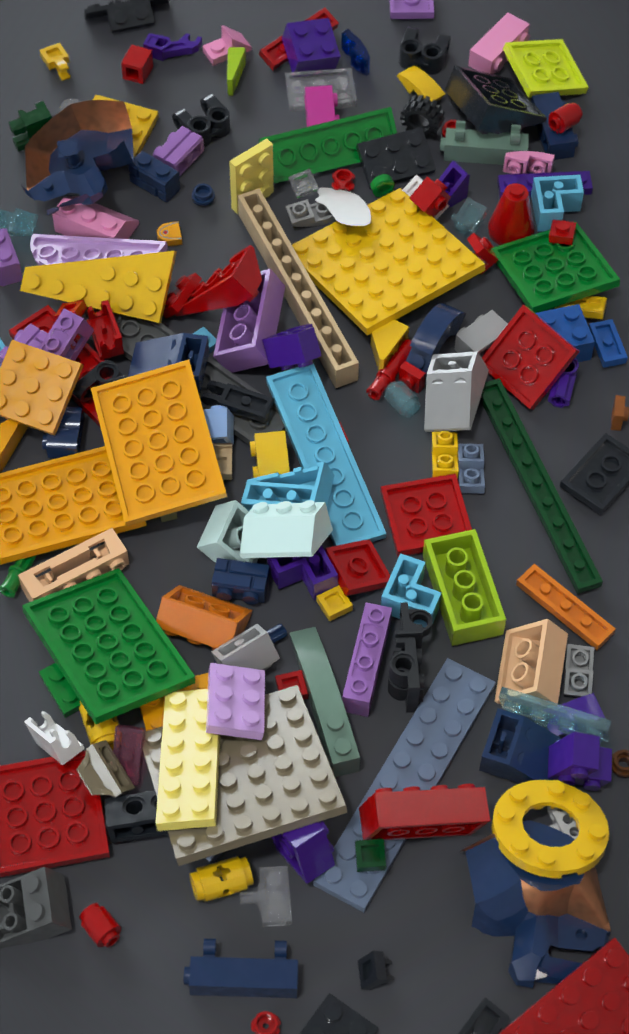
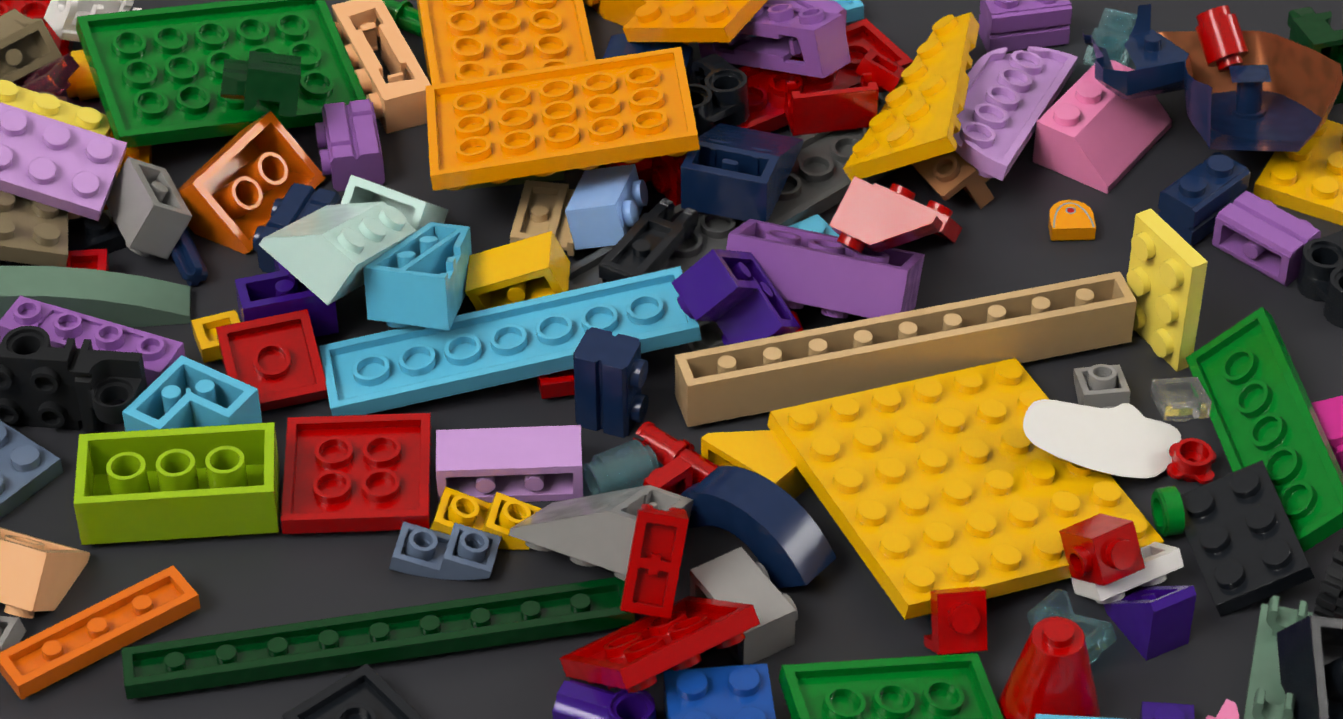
camera: 100 degrees right, 15 degrees down
(38, 158) = (1221, 38): none -> red brick
(143, 598) = (263, 78): none -> dark green hips
(157, 570) = (350, 143): none -> medium lavender brick
(352, 403) = (609, 382): none -> dark blue brick
(407, 445) = (514, 461): none -> lavender brick
(491, 352) = (654, 561): none -> red hinge

